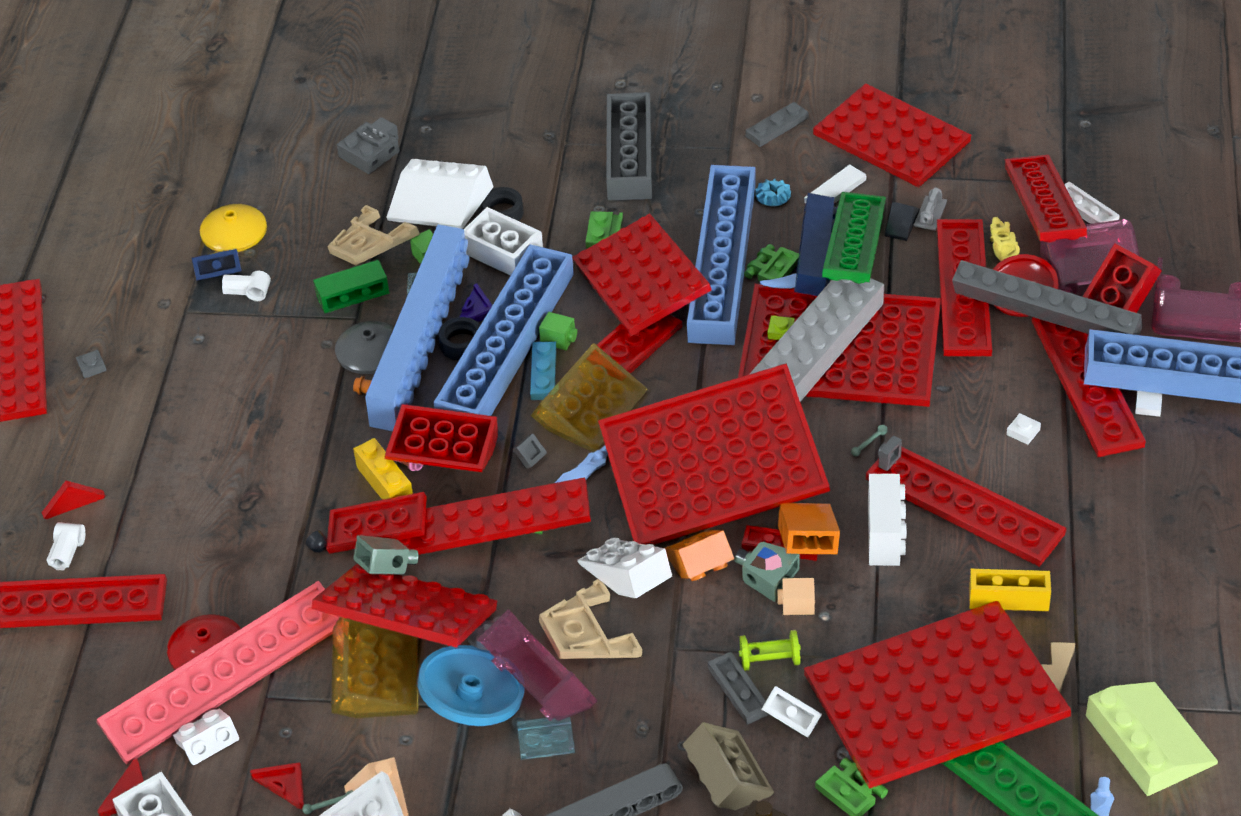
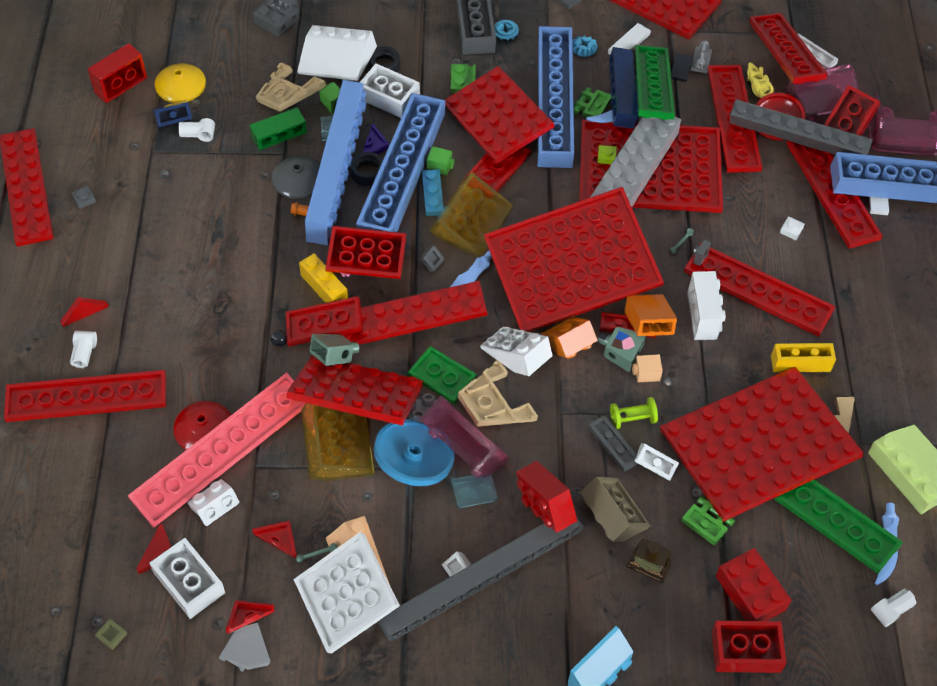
camera: 10 degrees left, 10 degrees up
(152, 213) = (117, 73): none -> red brick
(522, 593) = (441, 374): none -> green tile
(633, 743) = (546, 496): none -> red brick
(677, 167) = (510, 26): none -> medium azure gear

